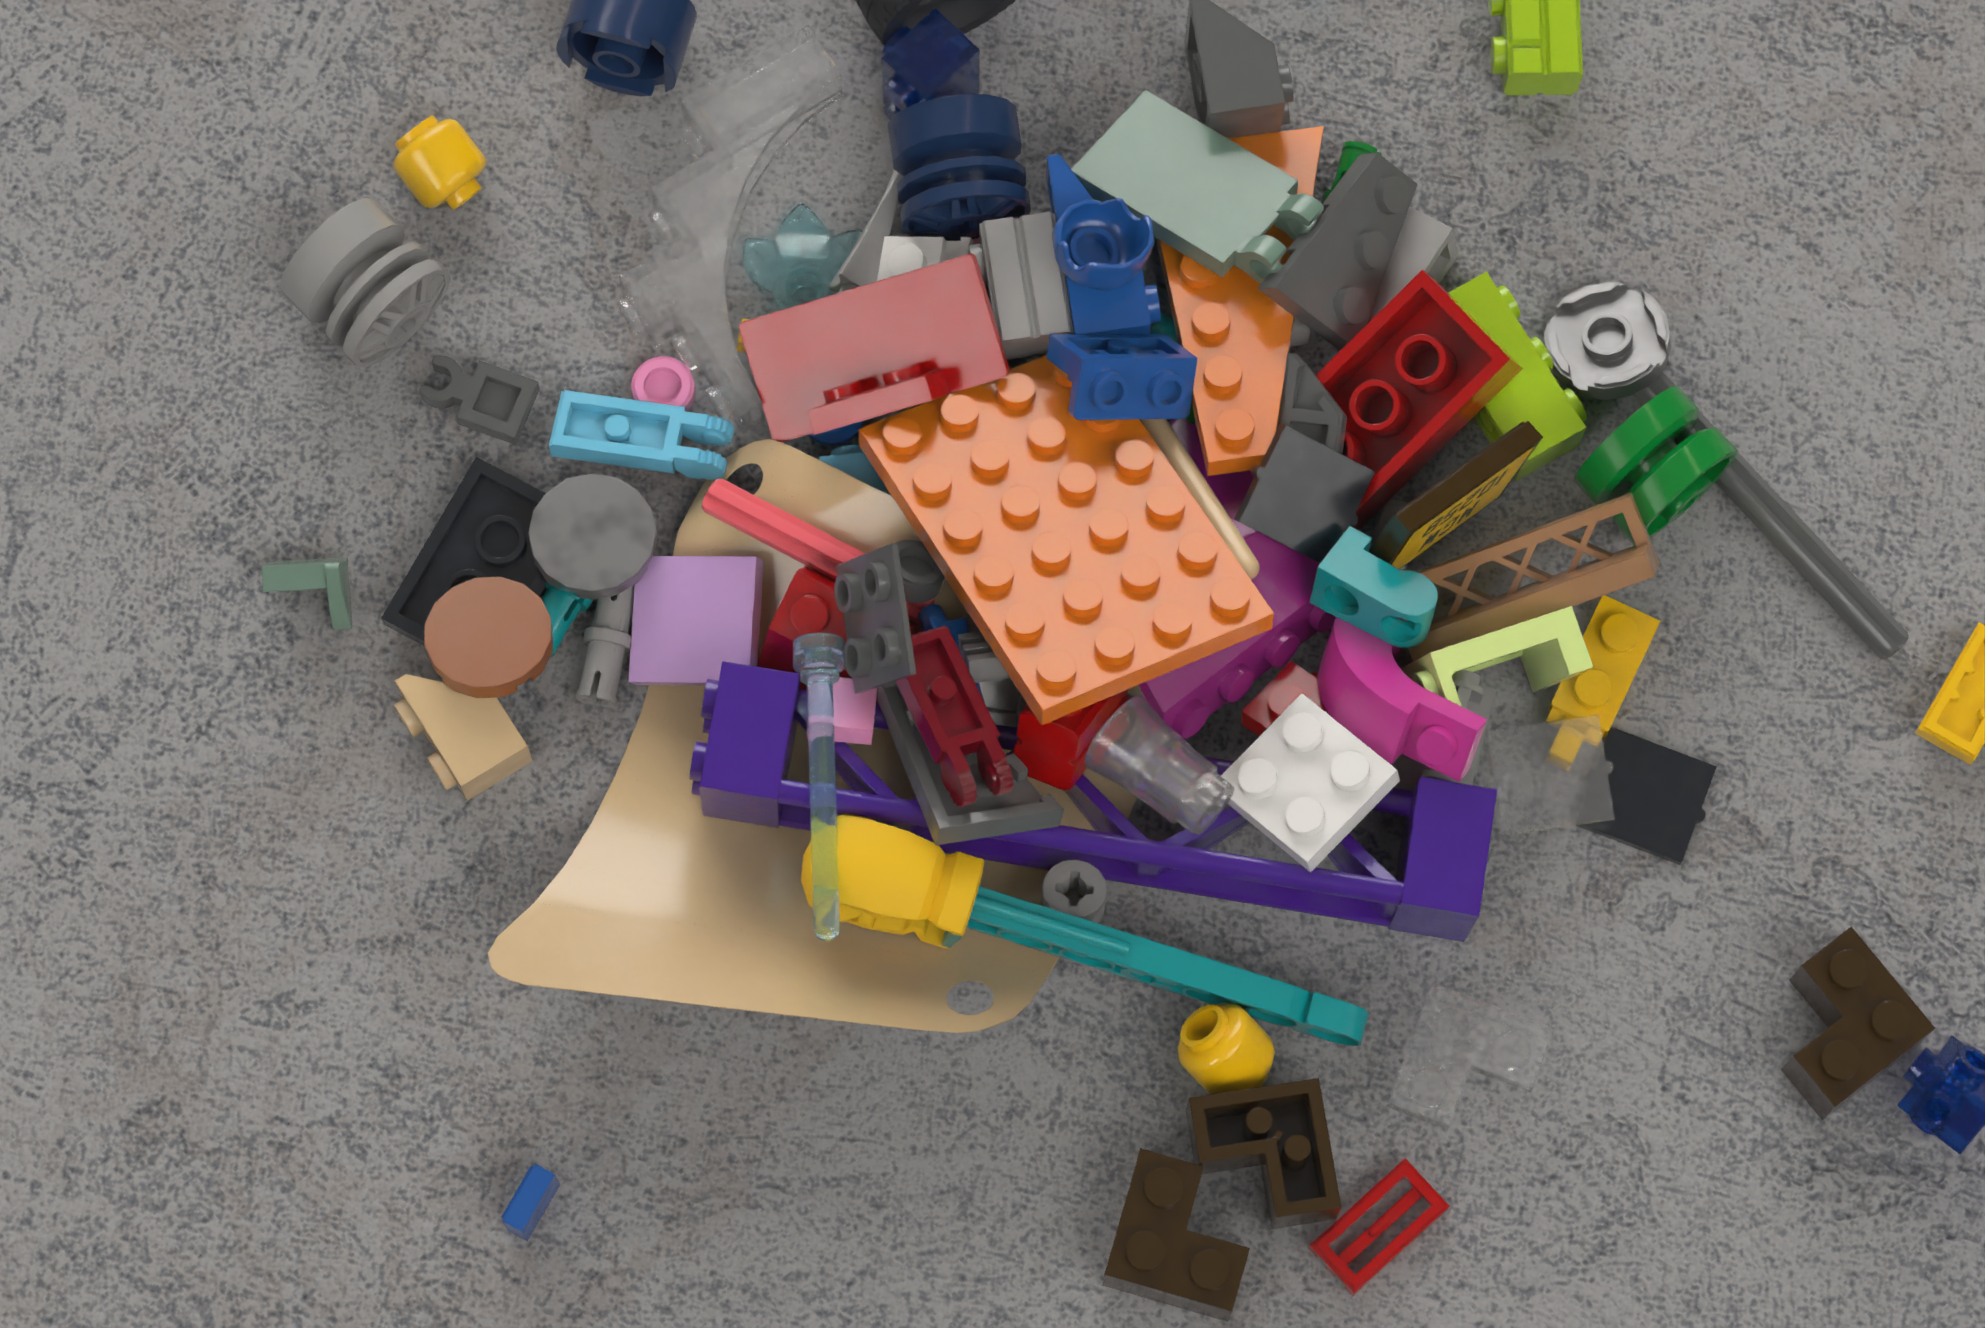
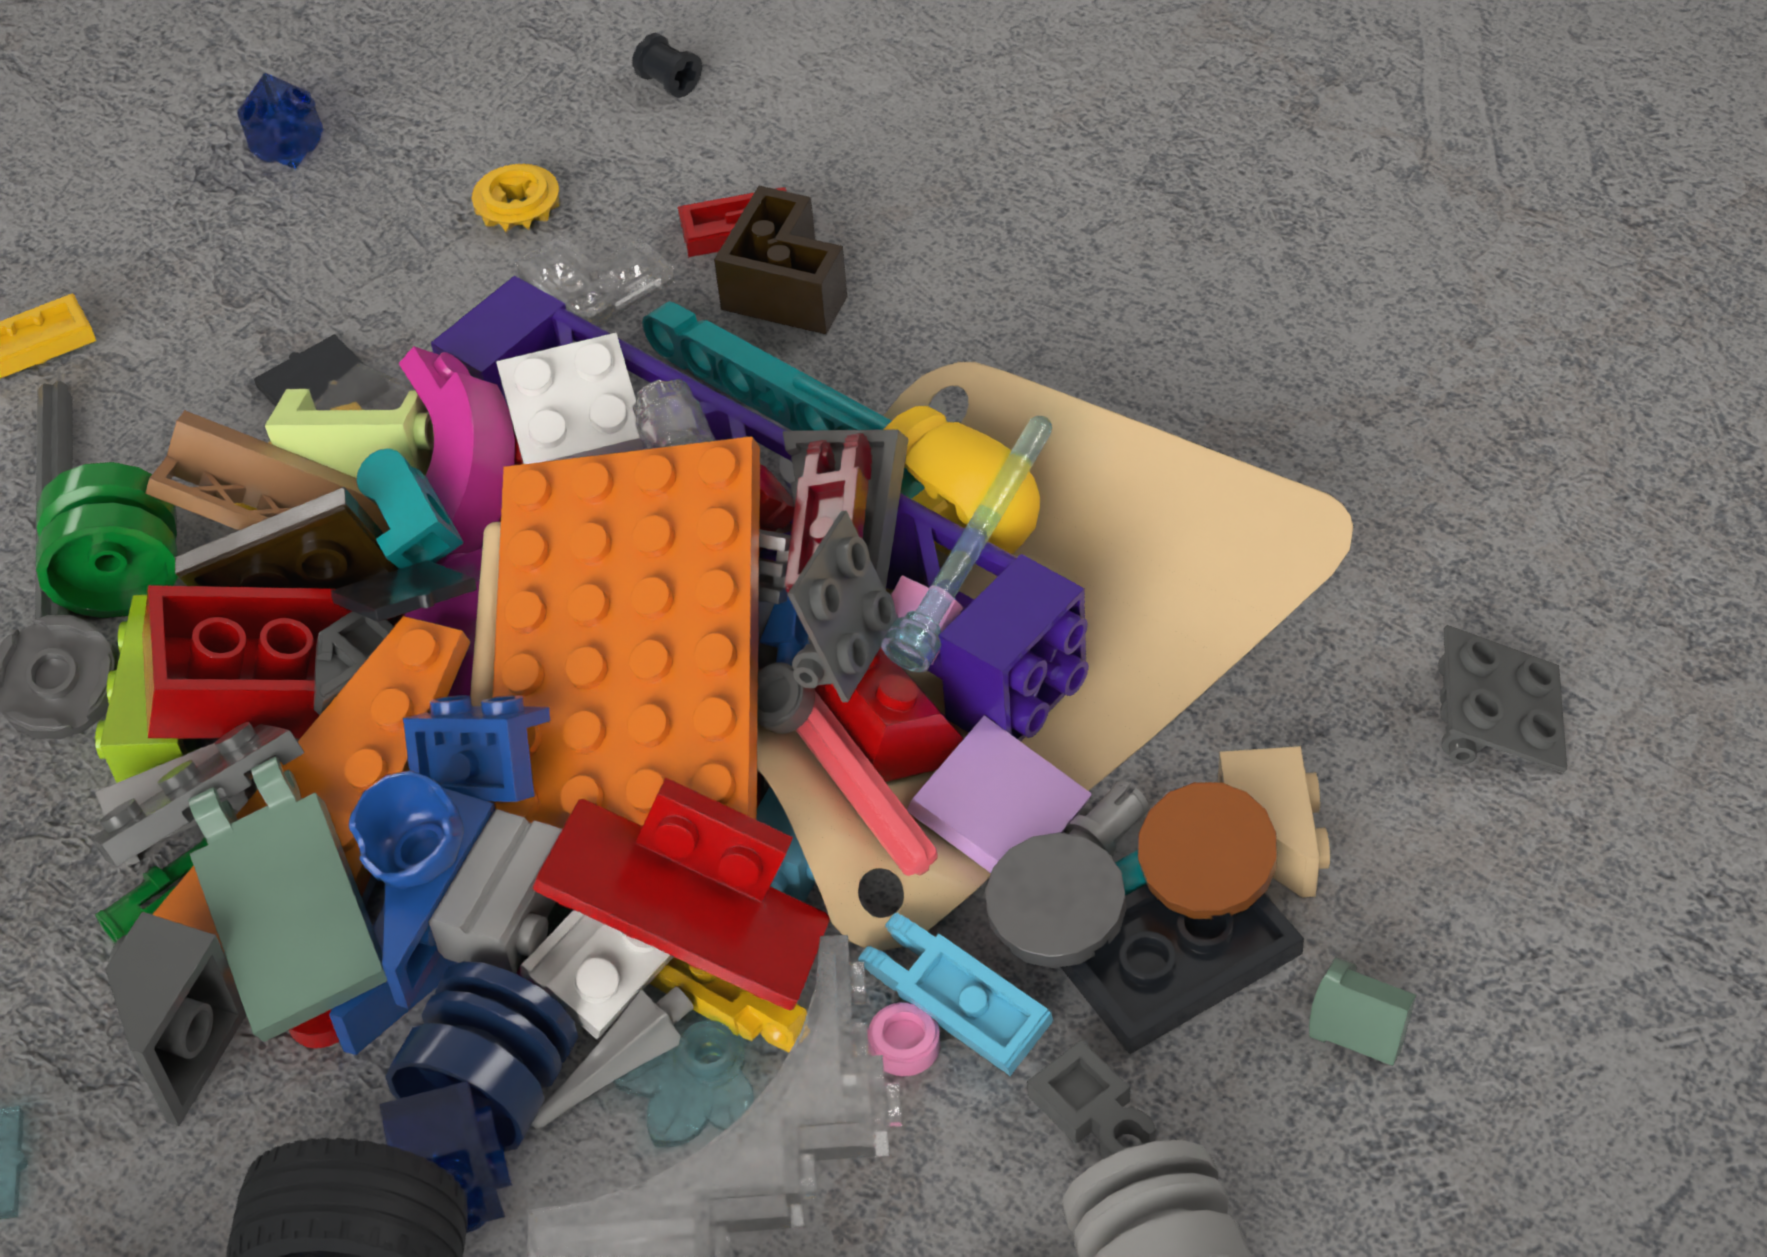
camera: 145 degrees left, 25 degrees down
(318, 960) = (1500, 701): none -> dark grey hinge
(530, 1201) = (1396, 460): blue tile -> none
(1157, 1254) = (897, 249): dark brown brick -> none
(1225, 1049) = (784, 318): yellow head -> none
(1658, 1121) = (515, 182): none -> yellow gear
(1866, 1018) = (310, 176): dark brown brick -> none

